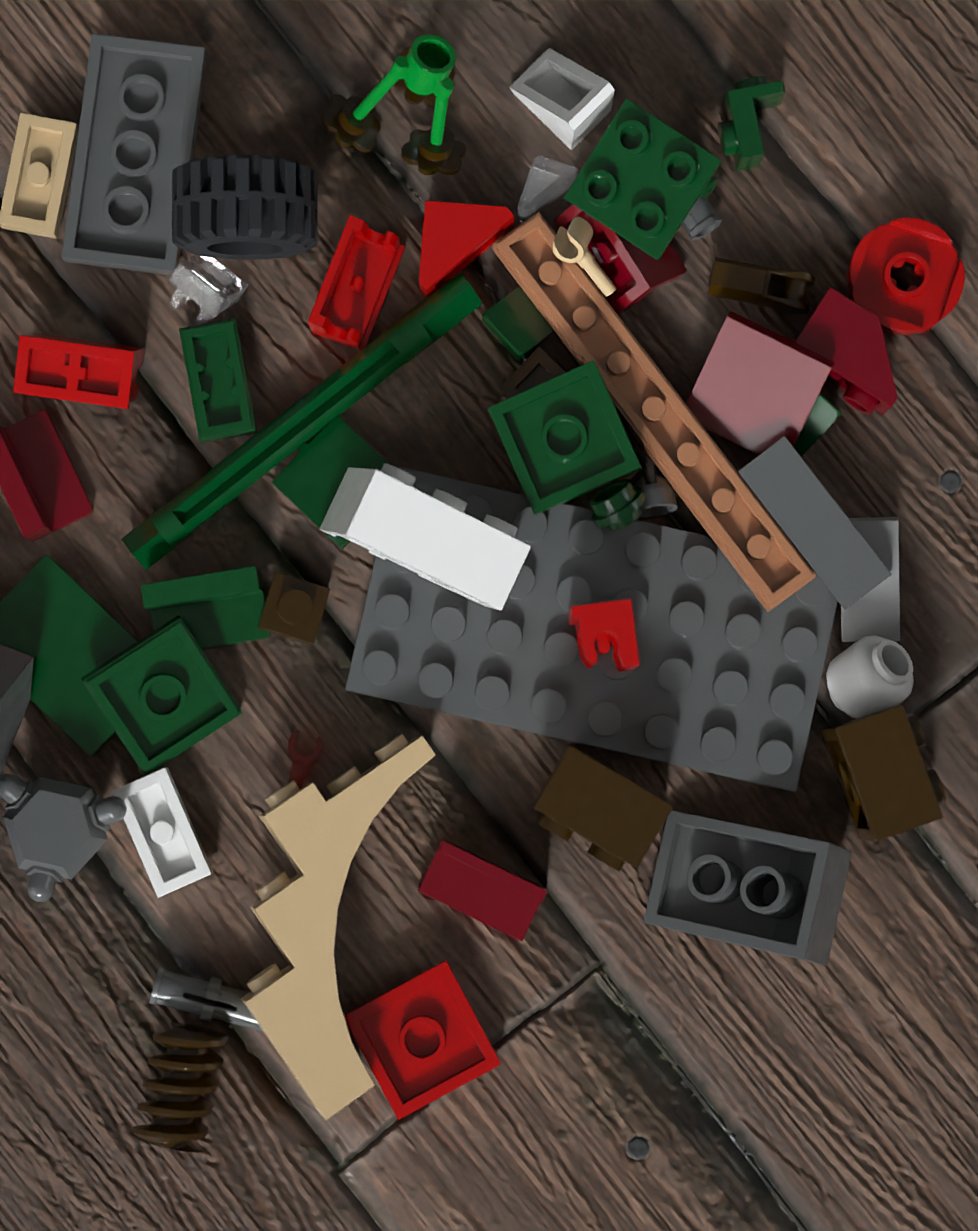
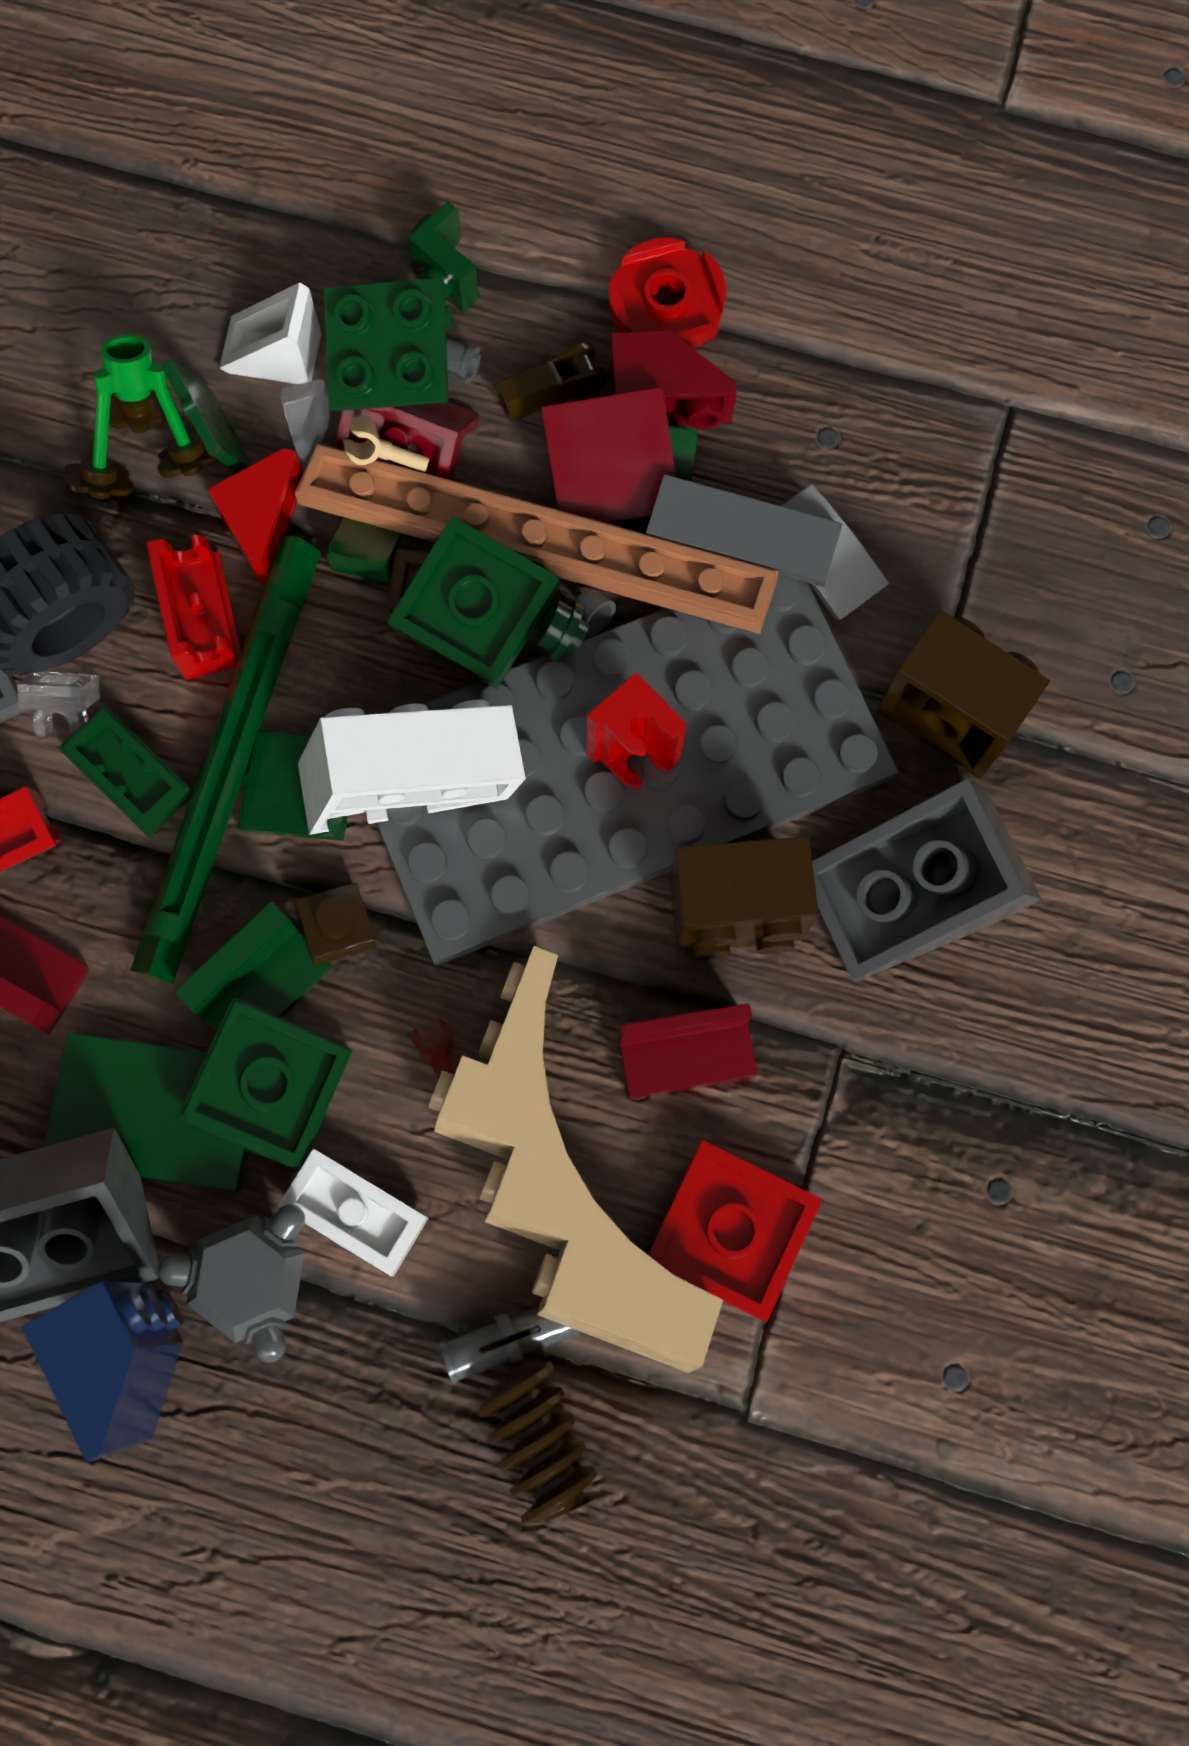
camera: 40 degrees left, 10 degrees down
(465, 141) = (207, 417): none -> dark green piece
(870, 676) = (886, 626): white head -> none

